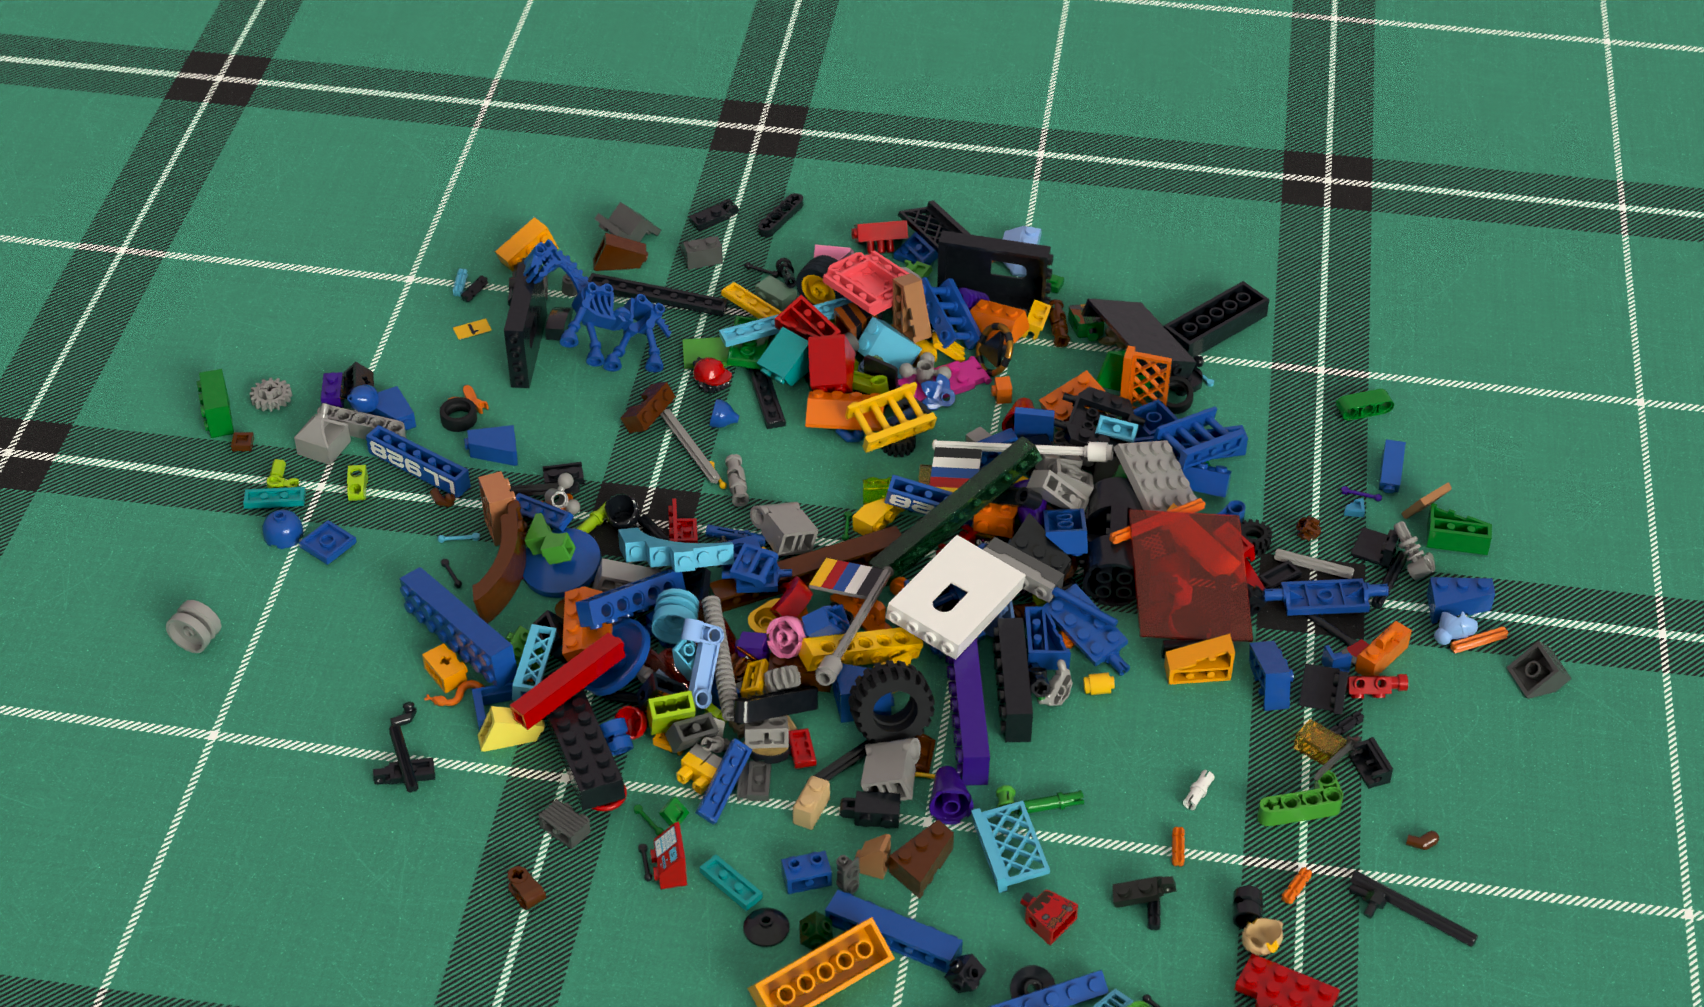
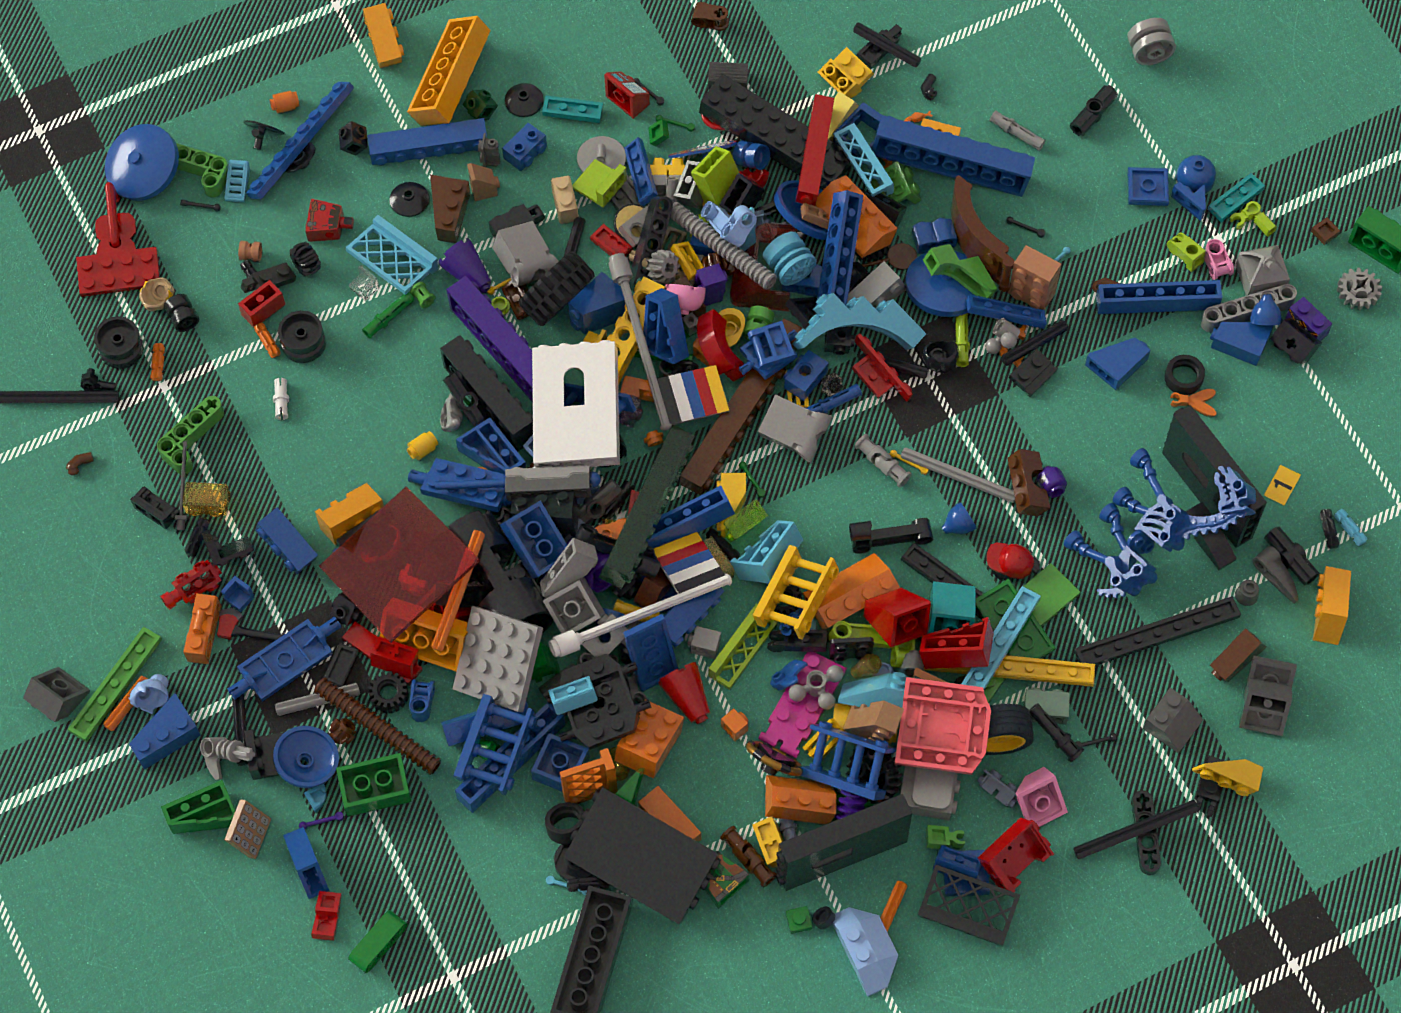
camera: 145 degrees right, 20 degrees up
(299, 614) = (1087, 116): none -> black piece
(306, 510) = (1193, 202): none -> blue slope
(339, 466) = (1218, 263): none -> bright pink piece
(379, 654) = (1017, 130): none -> light grey pin
(464, 760) = (846, 73): none -> yellow brick
(531, 599) = (933, 234): none -> blue brick
(624, 633) = (814, 215): none -> medium nougat tile
(628, 398) = (1052, 480): none -> dark purple head
(648, 768) = (703, 149): none -> shield
(698, 201) = (1237, 775): none -> yellow slope
(738, 613) = (757, 317): none -> bright green wheel
(744, 826) = (604, 150): none -> light grey shield
(768, 784) = (600, 182): none -> lime bracket
(788, 211) = (1136, 829): none -> black axle
(800, 438) = (864, 538): none -> black piece
(884, 461) = (763, 558): none -> medium azure wedge
(943, 755) = (502, 304): none -> lime plate
(951, 906) = (410, 205): none -> black dish
(955, 431) = (732, 647): none -> lime fence
(1052, 839) = (365, 284): none -> clear panel
(1094, 354) = (664, 809): none -> orange brick
(1095, 883) = (305, 259): none -> black gear
(1142, 929) = (250, 251): none -> nougat wheel
(1146, 818) = (301, 336): none -> black wheel
(1166, 864) = (261, 303): none -> red brick
(1279, 516) = (377, 725): none -> reddish brown piece
(1306, 481) = (373, 784): none -> green brick
(1327, 910) = (119, 342): none -> black wheel
(1350, 520) = (309, 745): none -> blue dish
(1397, 432) = (326, 916): none -> red slope
(1480, 655) = (114, 684): none -> bright green plate

